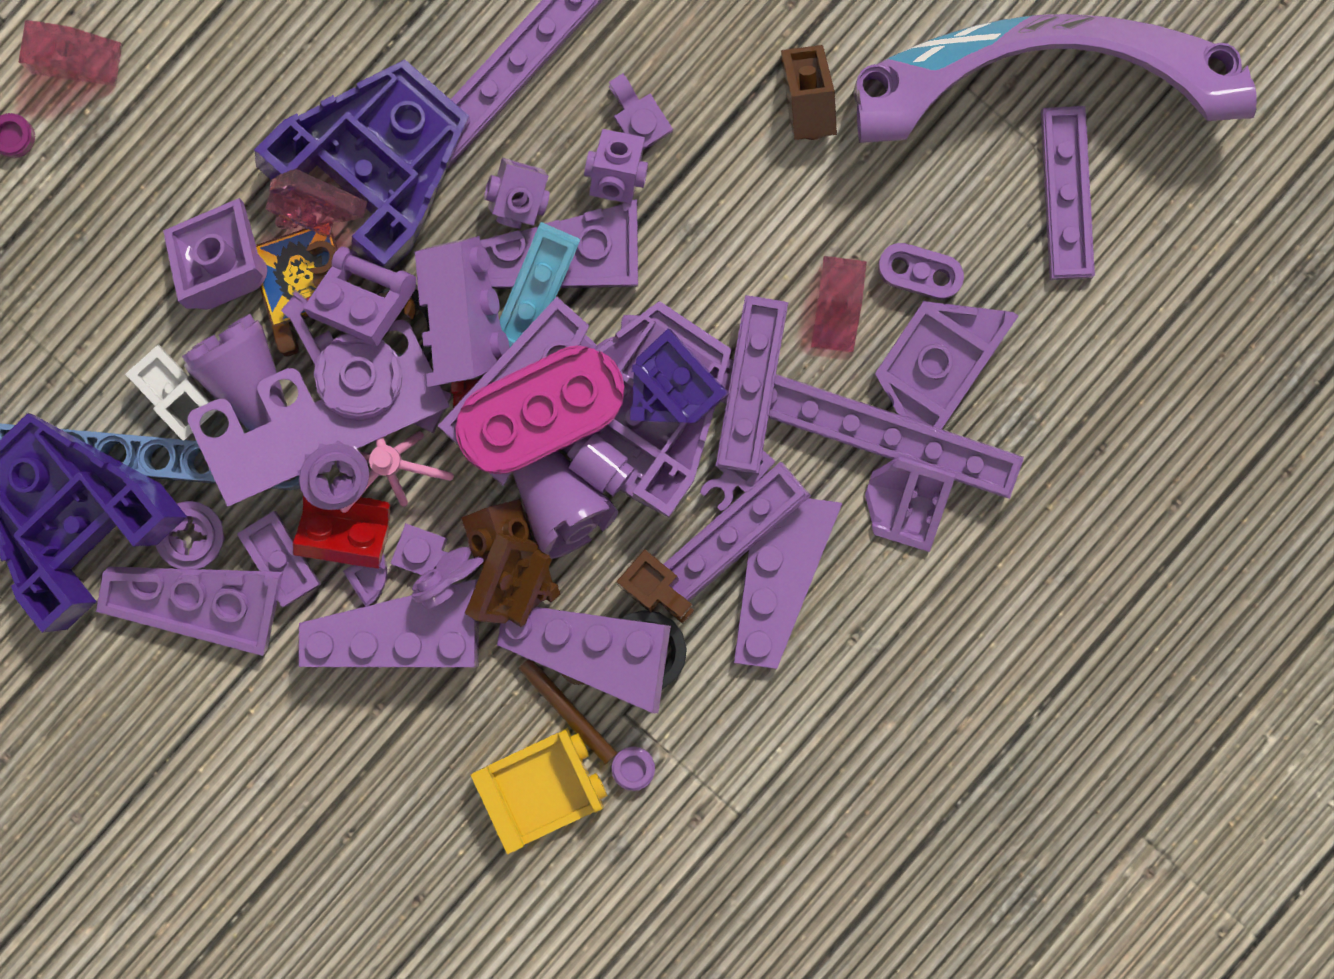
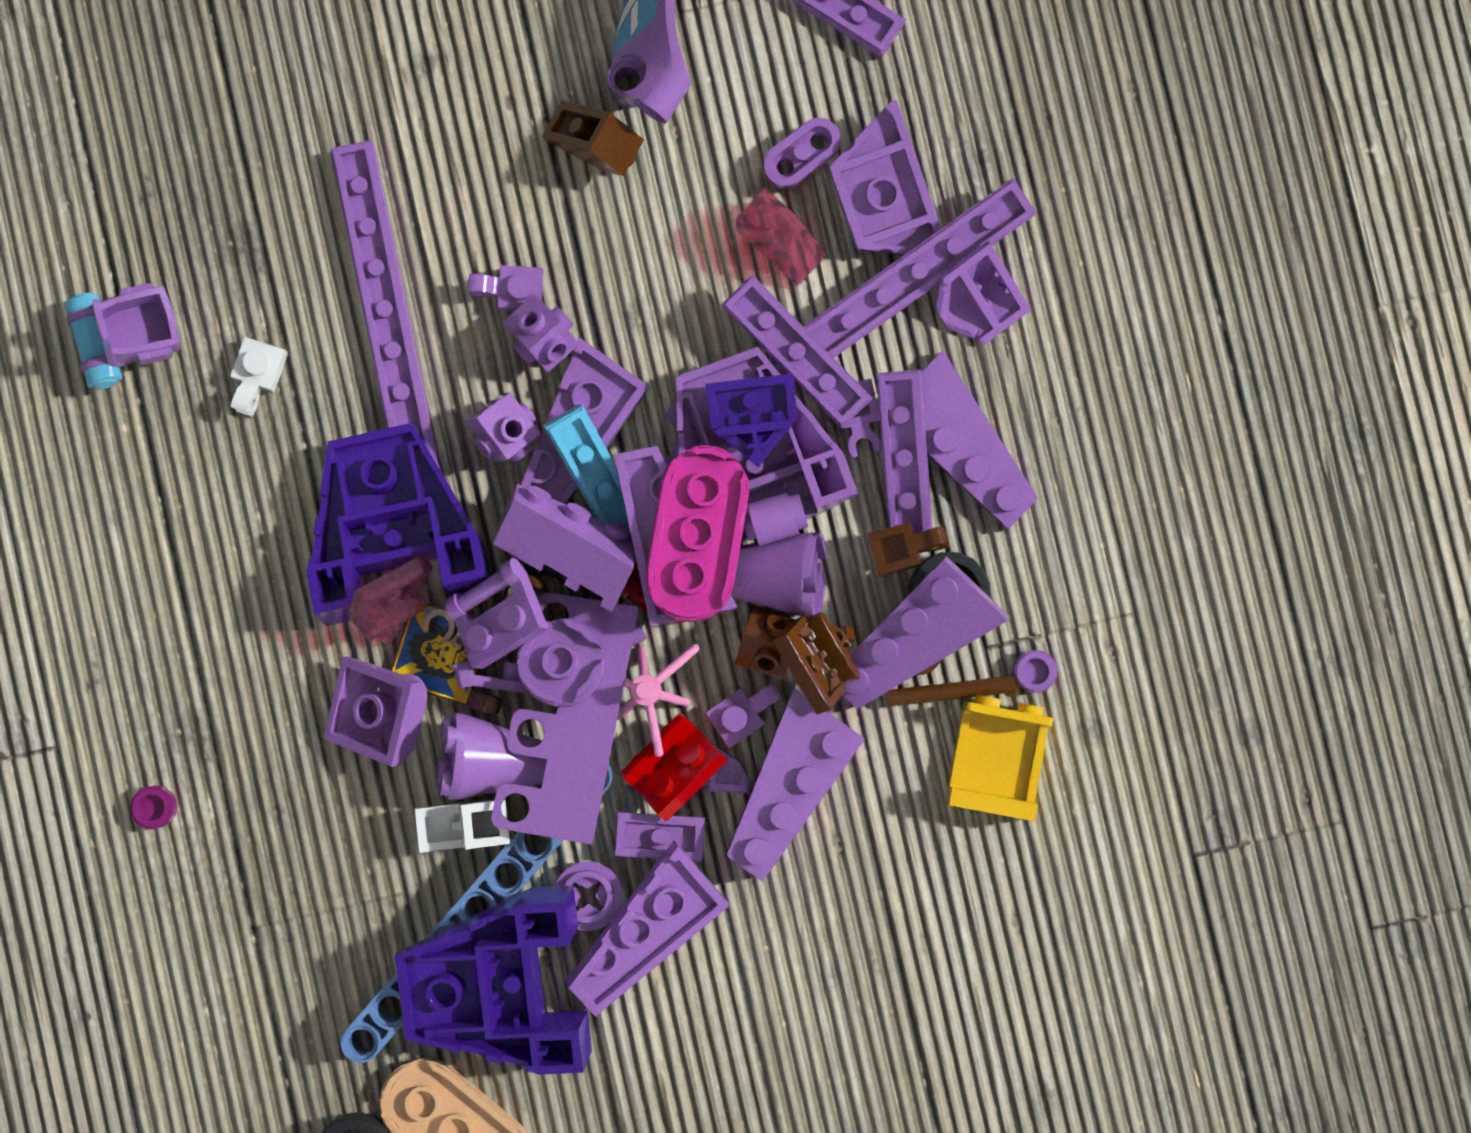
camera: 55 degrees left, 0 degrees up
(69, 53) = (121, 711): clear pink slope -> none
(345, 488) = (645, 740): medium lavender gear -> none
(436, 584) = (777, 721): medium lavender plate -> none

